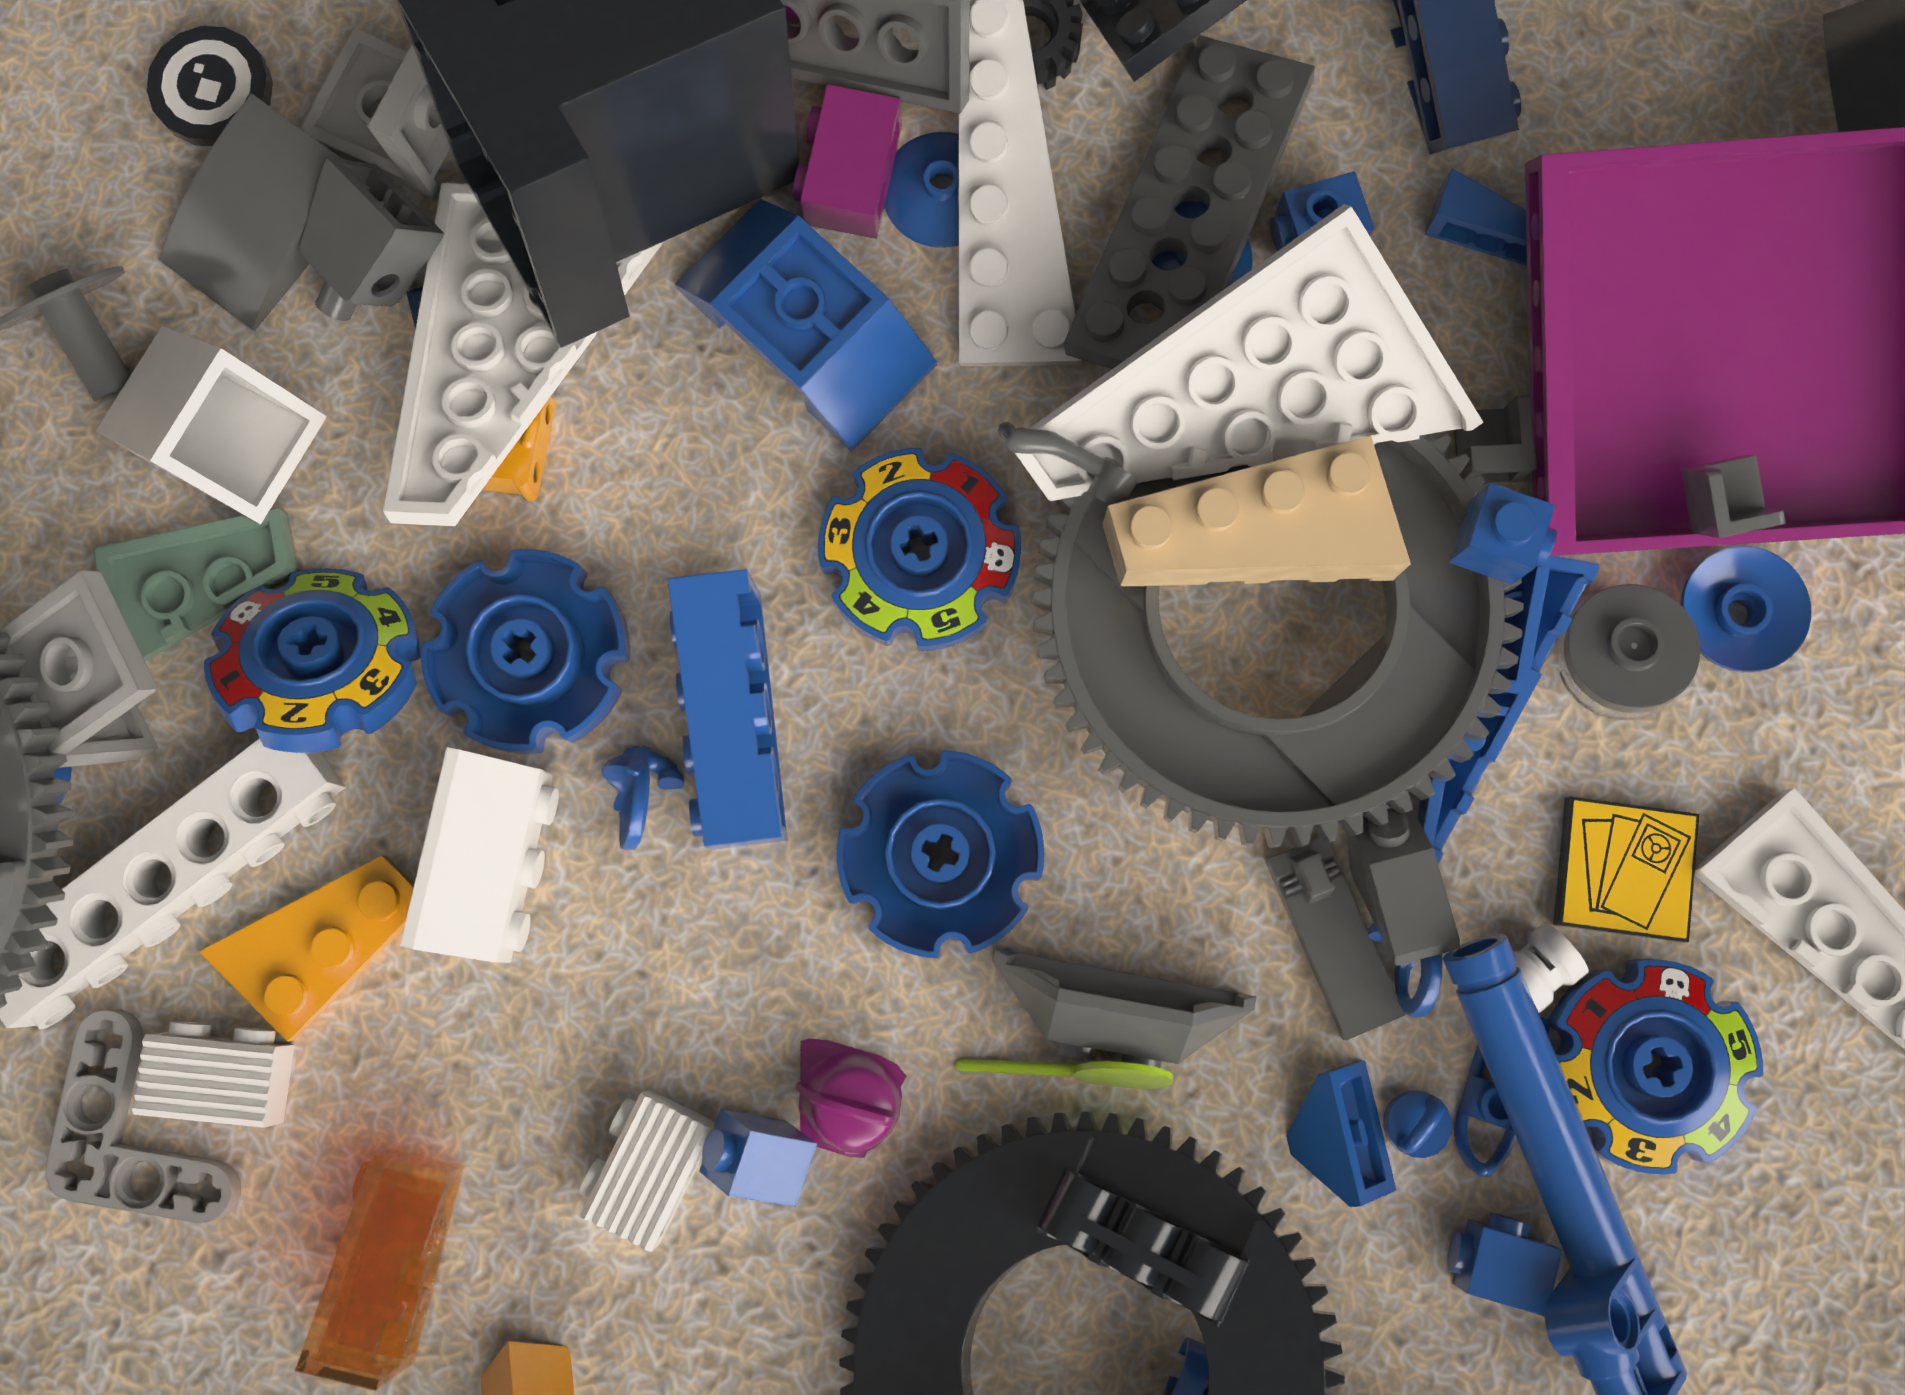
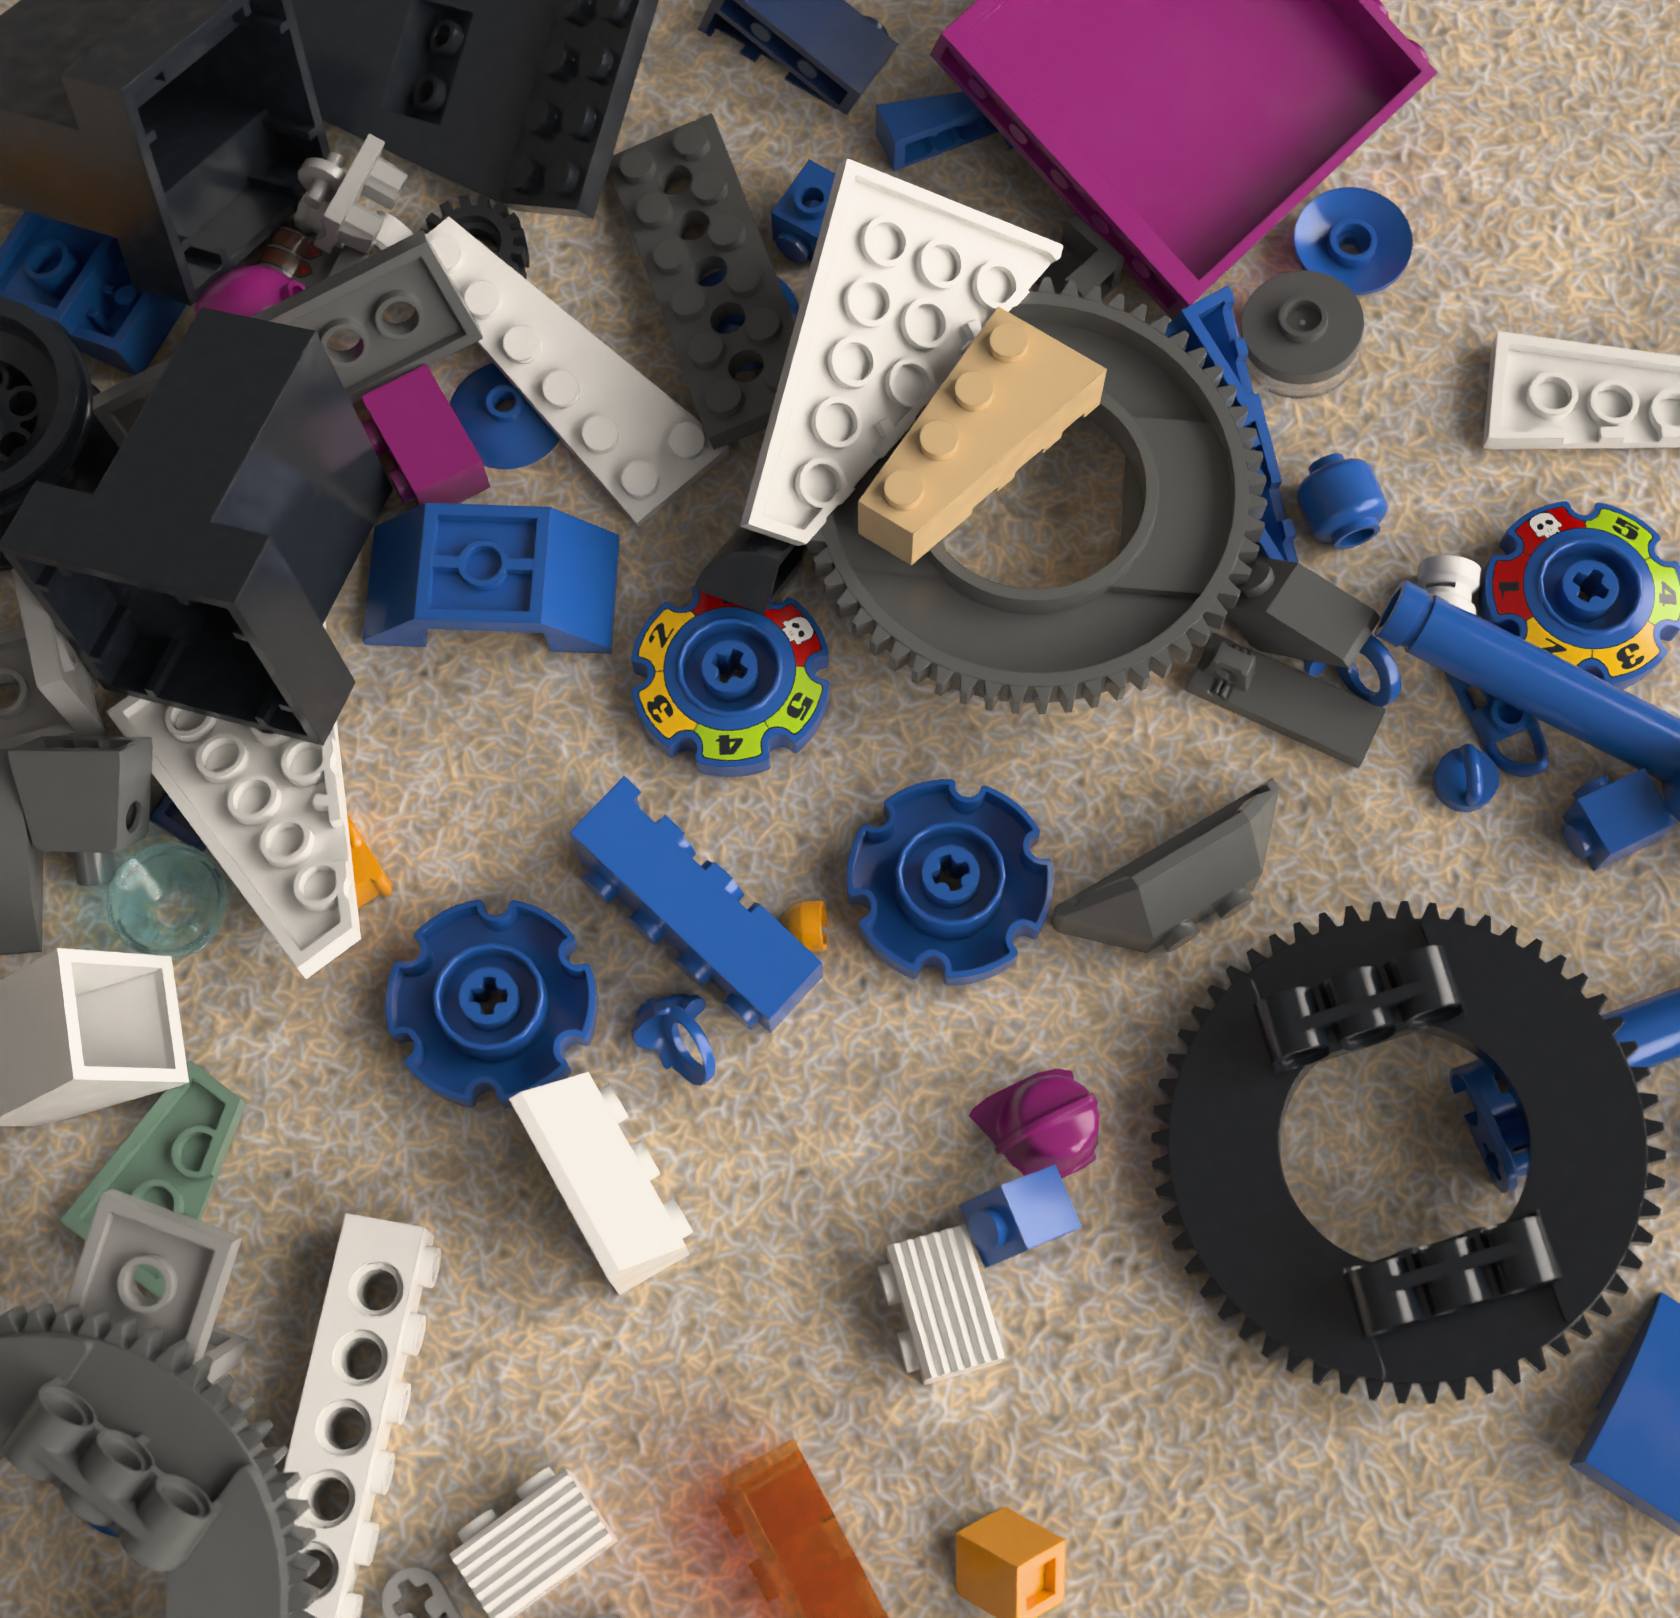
camera: 45 degrees left, 10 degrees down
(313, 660) = (326, 1148): blue piece -> none
(315, 946) = (522, 1375): light orange wing -> none
(338, 355) = (151, 877): none -> clear light blue piece
(802, 789) = (805, 923): none -> light orange hinge
(994, 482) = (751, 569): none -> black brick
(1098, 1073) = (1216, 931): lime piece -> none
(1111, 481) = (840, 487): dark grey piece -> none
(1342, 1137) = (1419, 834): blue slope -> none
(1504, 534) = (1148, 305): blue brick -> none
(1528, 819) = (1342, 501): none -> blue head
(1626, 869) = (1443, 483): yellow tile -> none
(1727, 498) = (1273, 166): dark grey panel -> none

